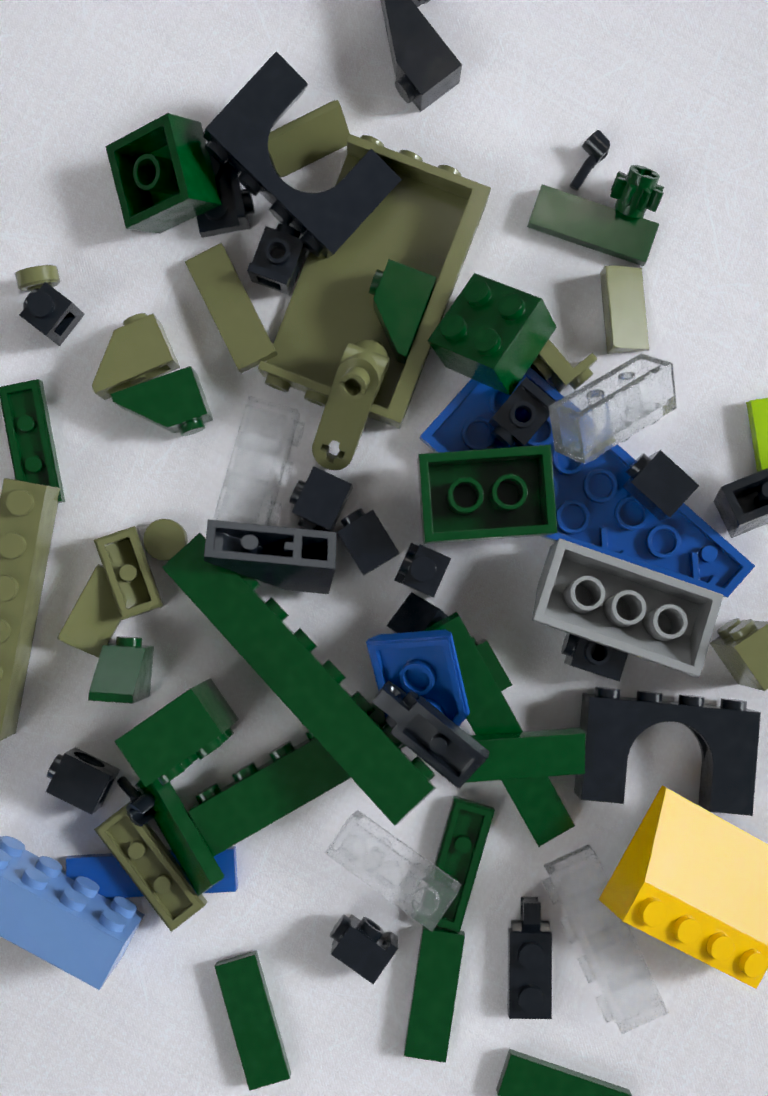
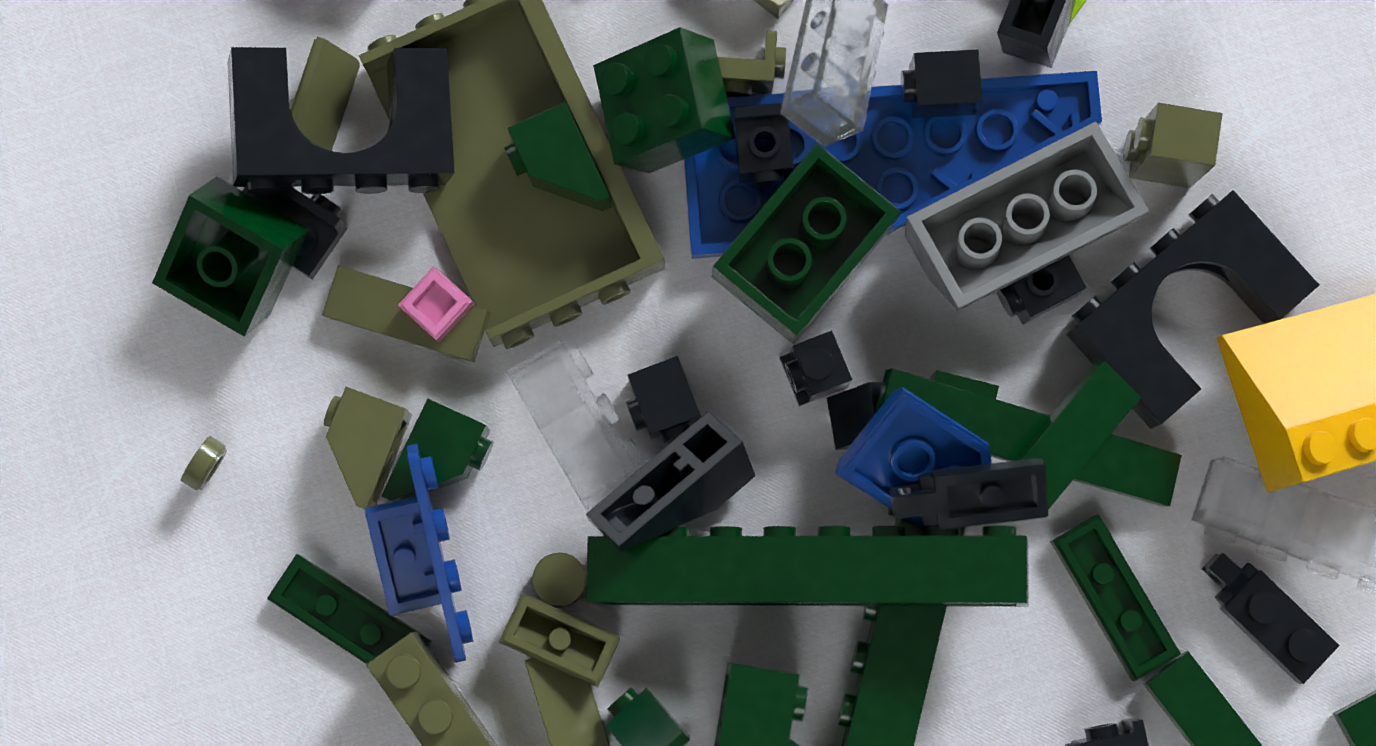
camera: 45 degrees left, 5 degrees down
(45, 310) = (249, 482): black brick -> none
(93, 444) = (410, 554): none -> blue bracket
(250, 318) = (436, 304): none -> bright pink tile
(281, 272) = (414, 242): black brick -> none
(350, 402) = (603, 287): olive piece -> none
(367, 540) = (741, 393): black brick -> none
(393, 869) = (1067, 655): clear brick -> none

